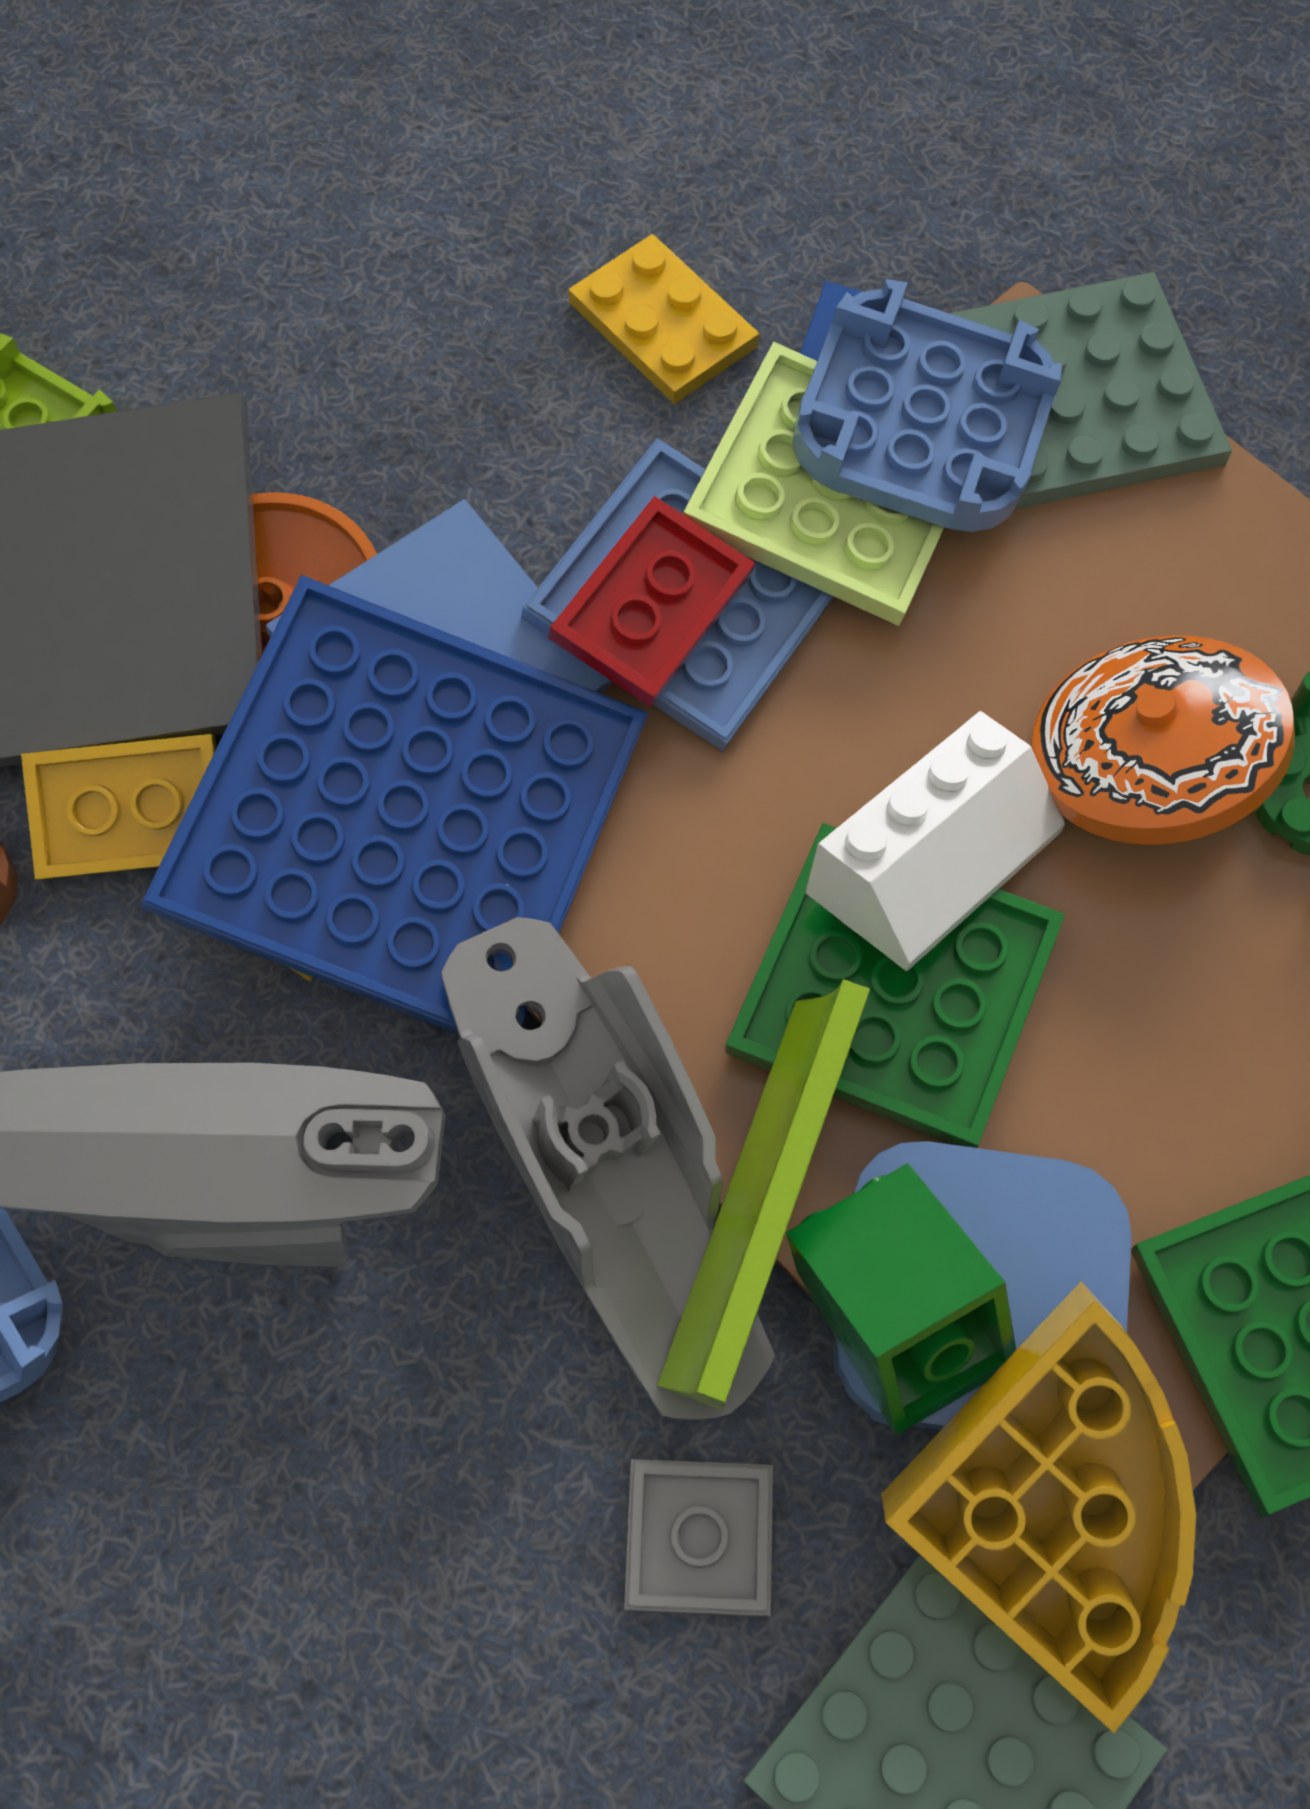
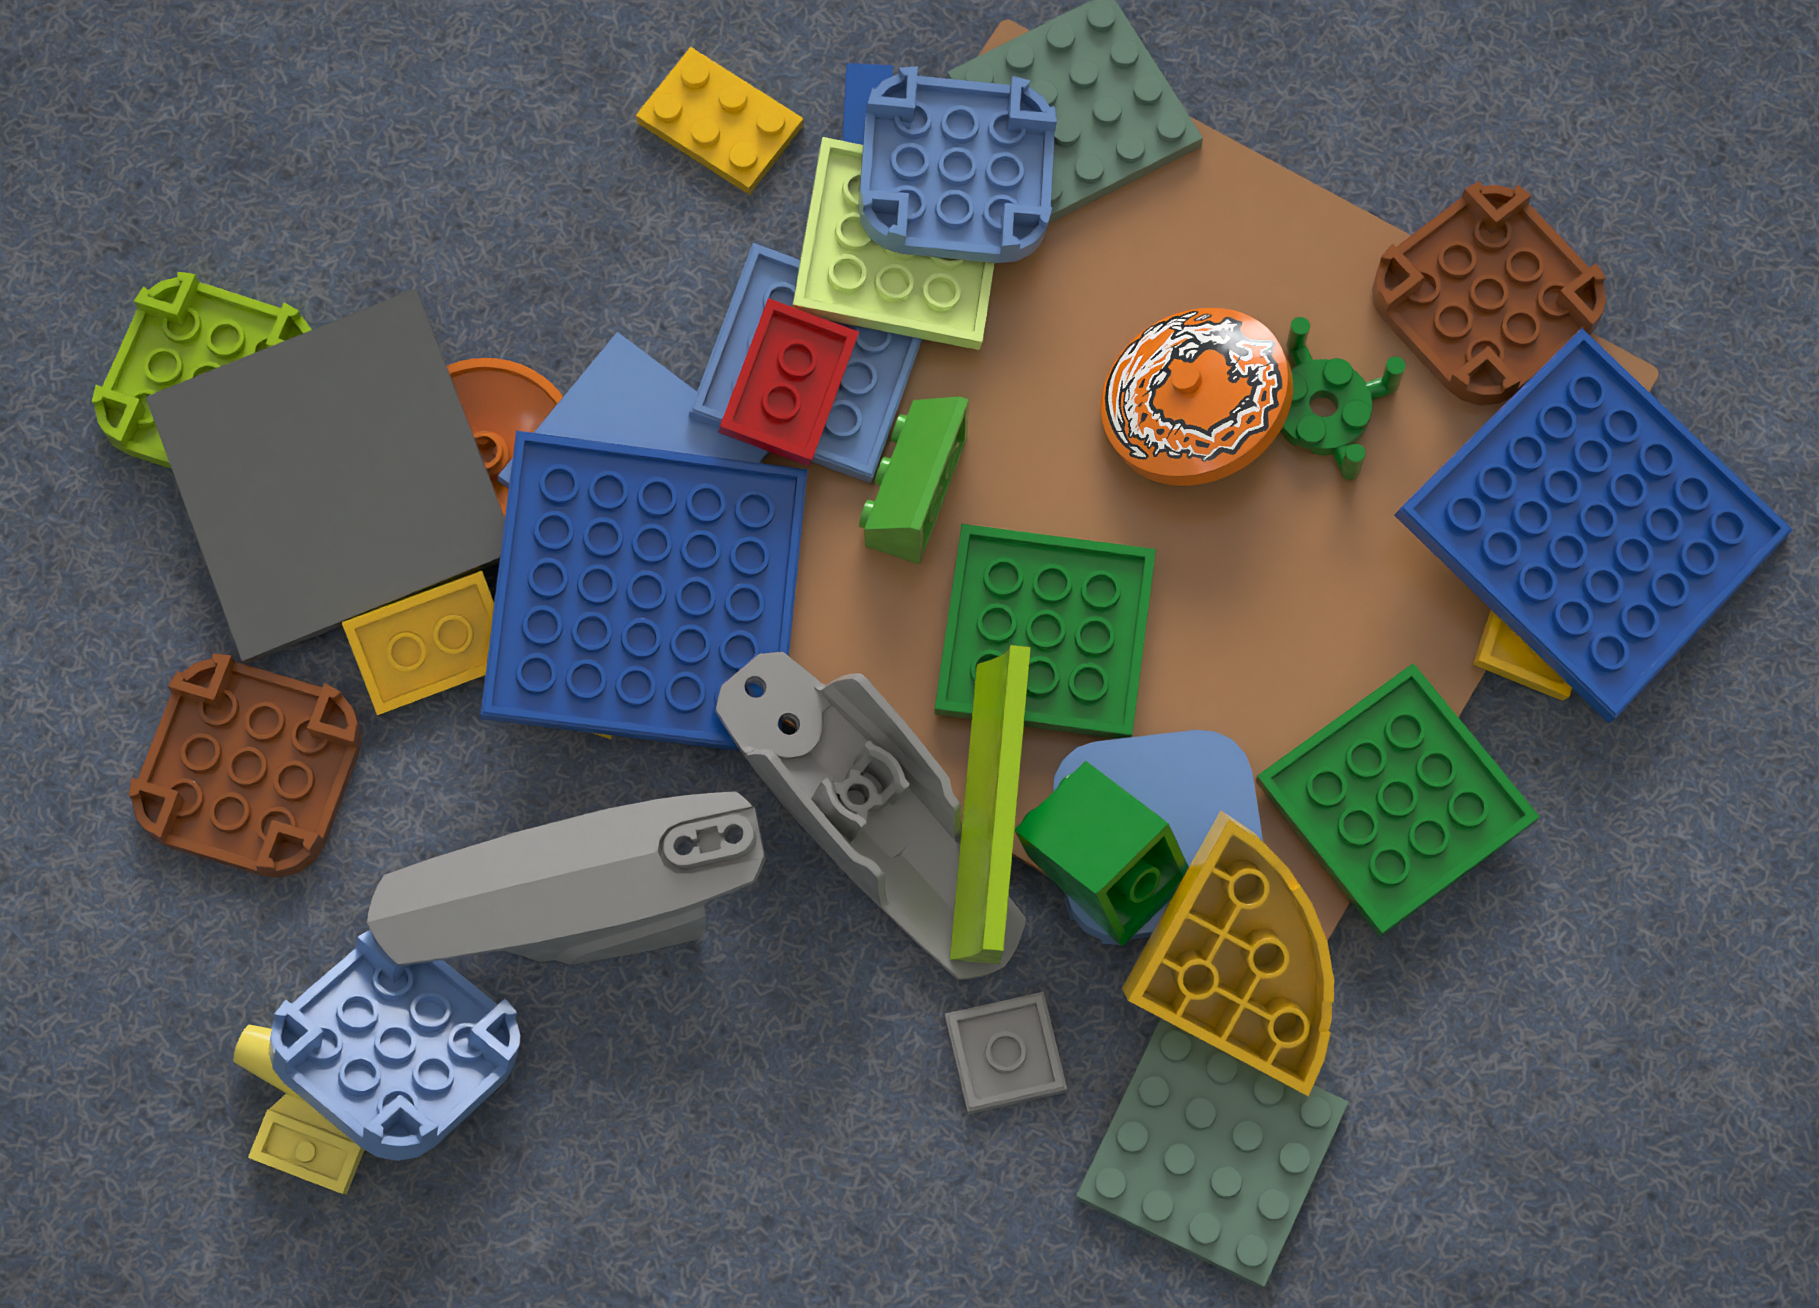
camera: 15 degrees left, 5 degrees up
(781, 753) = (916, 477): none -> bright green slope
(937, 841) = (1051, 518): white slope -> none

